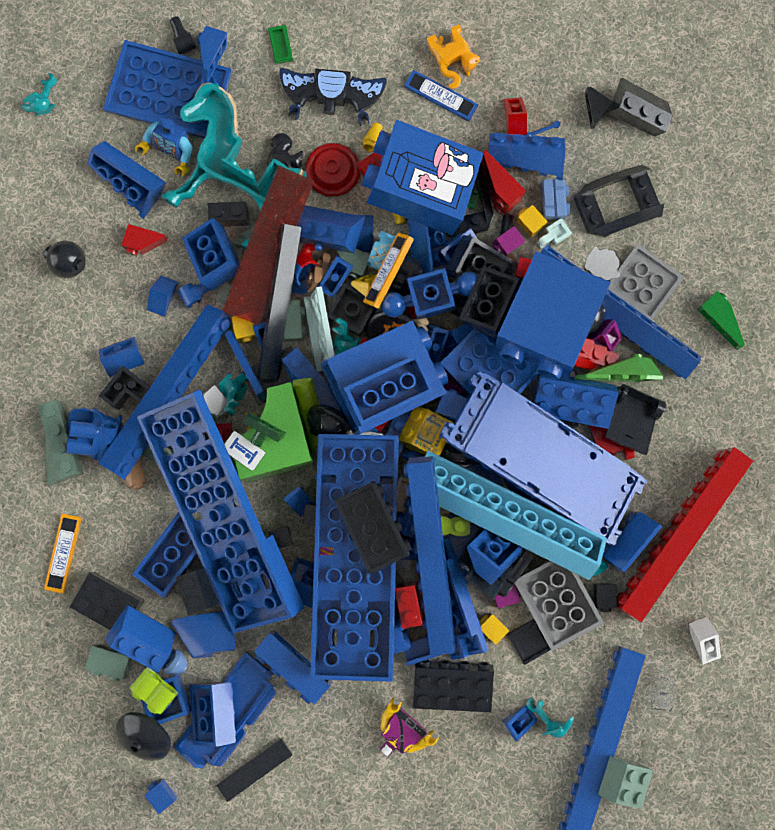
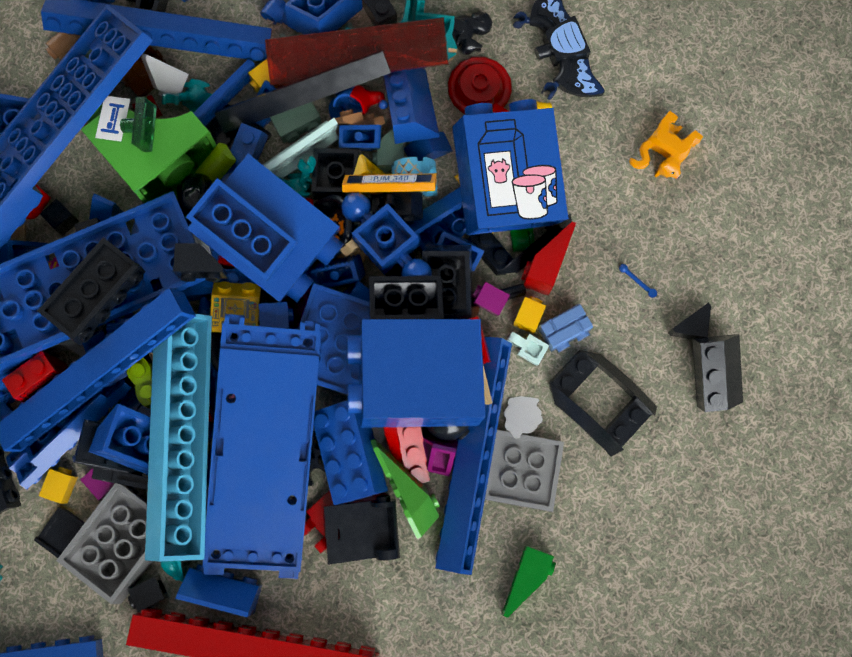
camera: 60 degrees right, 5 degrees down
(387, 439) = (194, 262): none -> black slope
(441, 95) = (617, 158): tile -> none
(515, 116) = (635, 243): red slope -> none
(529, 153) = (601, 274): blue wedge -> none

